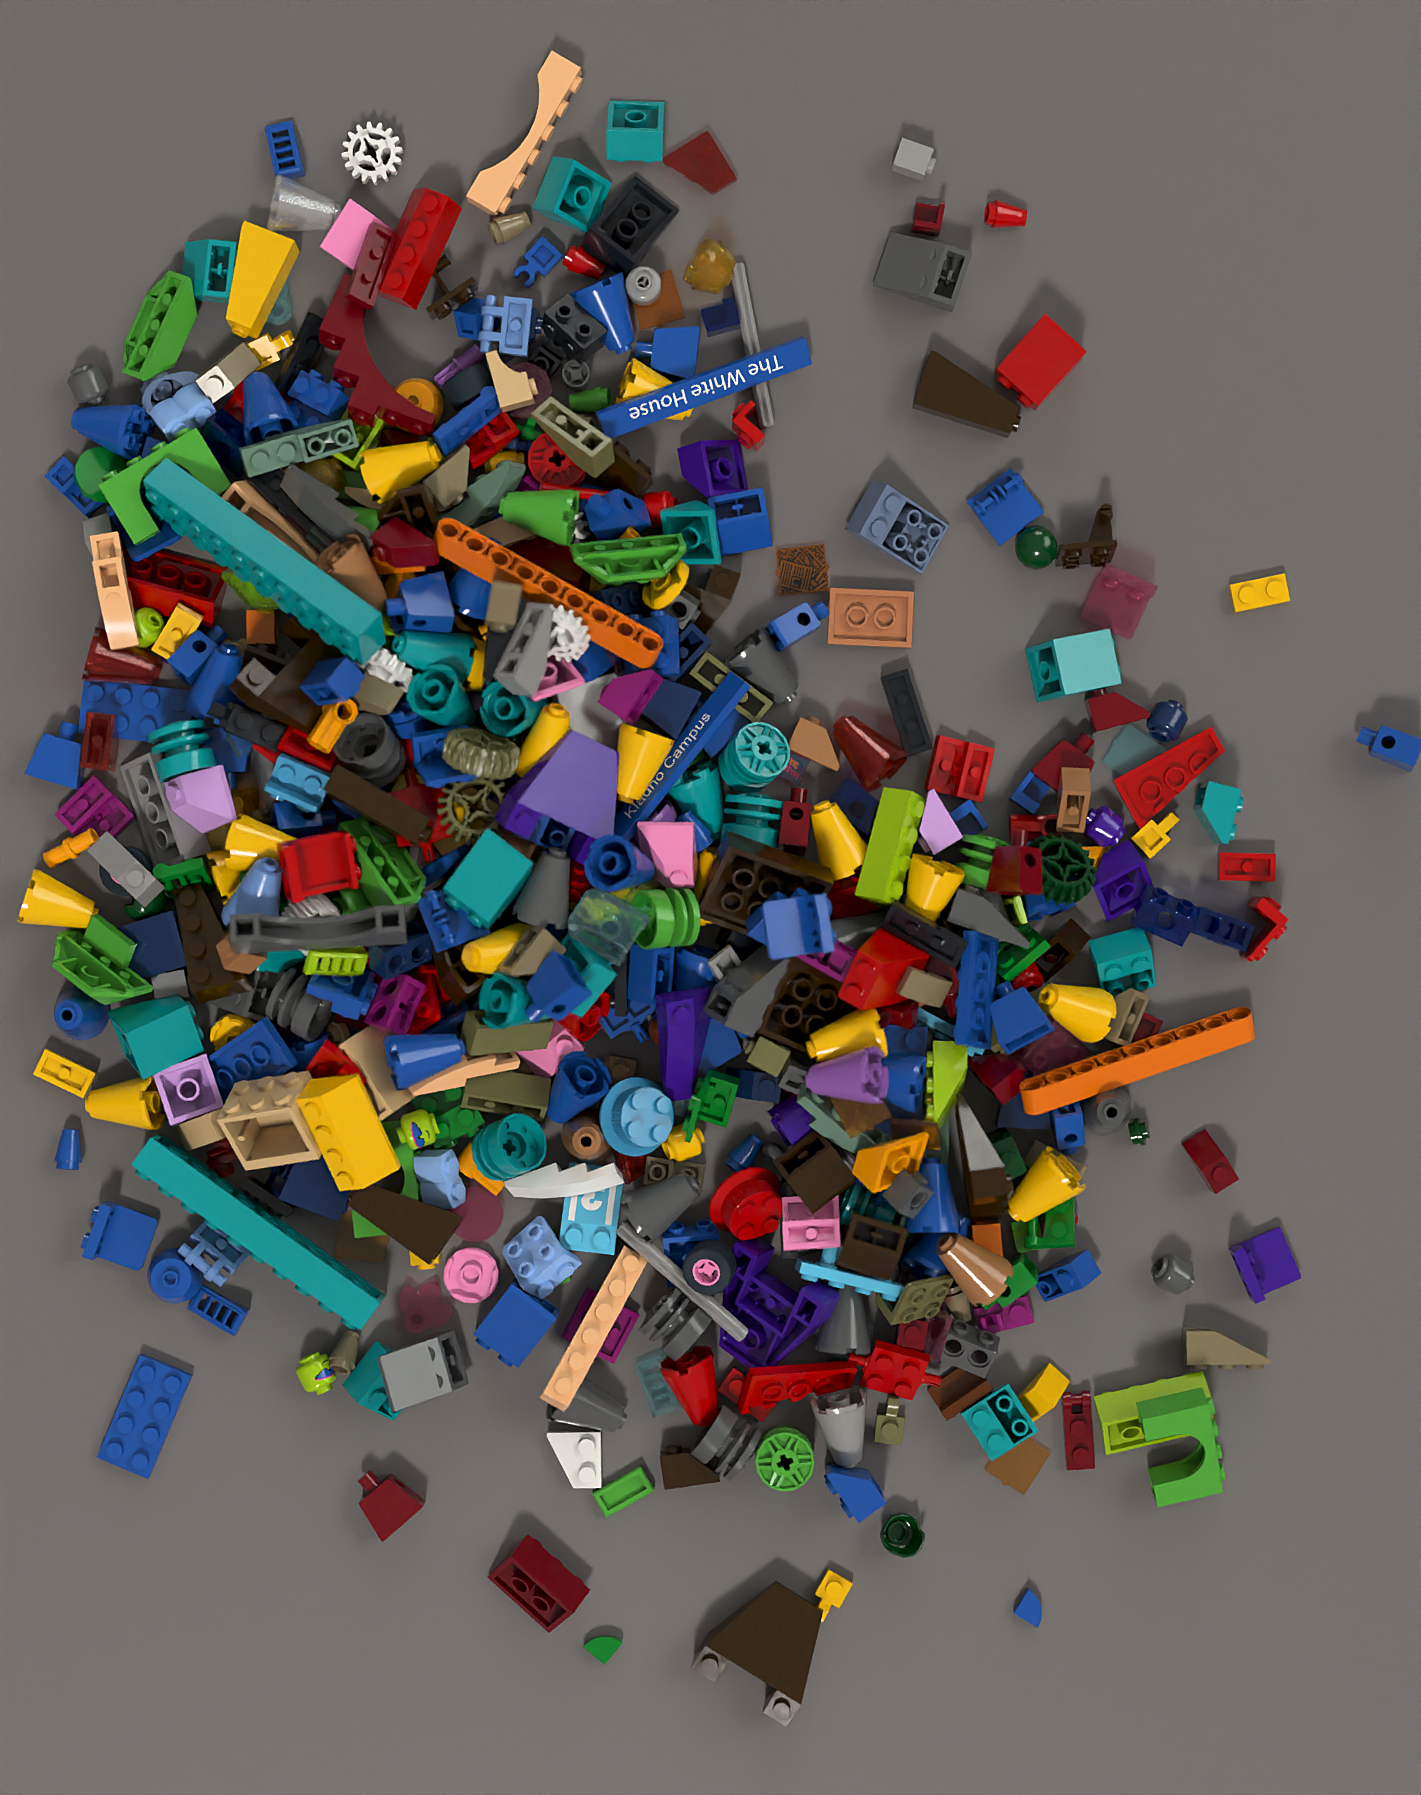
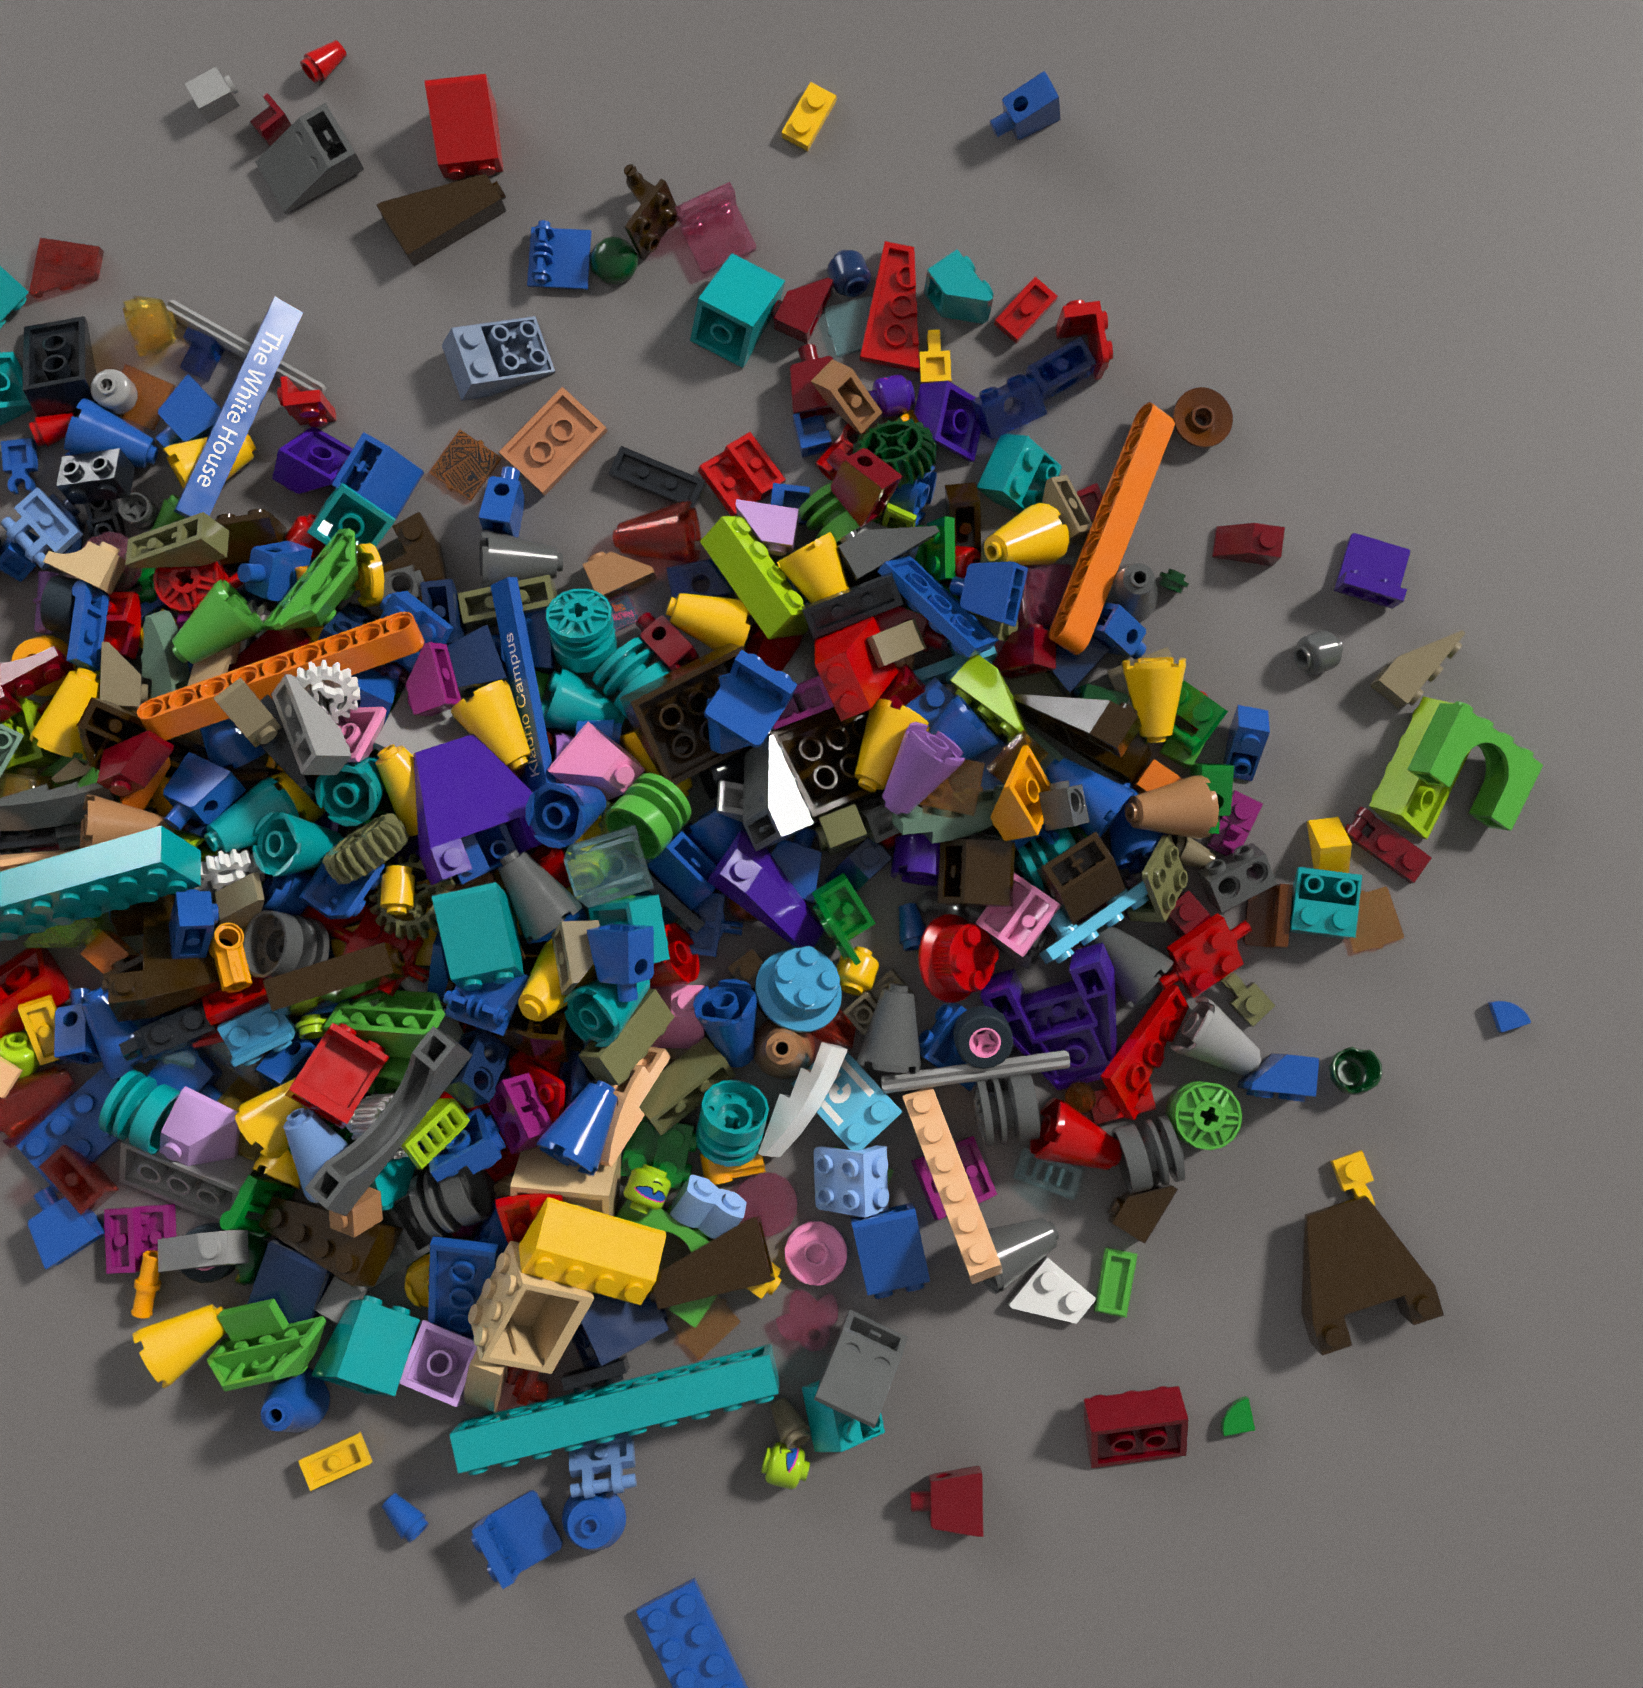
camera: 50 degrees left, 5 degrees down
(128, 1103) = (407, 1427): yellow cone -> none
(241, 1310) = (684, 1504): blue slope -> none
(332, 813) = (311, 1026): none -> lime plate
(472, 798) = (397, 890): none -> yellow brick
(726, 1365) = (1080, 1097): none -> clear orange plate
(937, 1334) = (1206, 890): clear pink piece -> none
(1286, 1057) = (1208, 406): none -> reddish brown dish

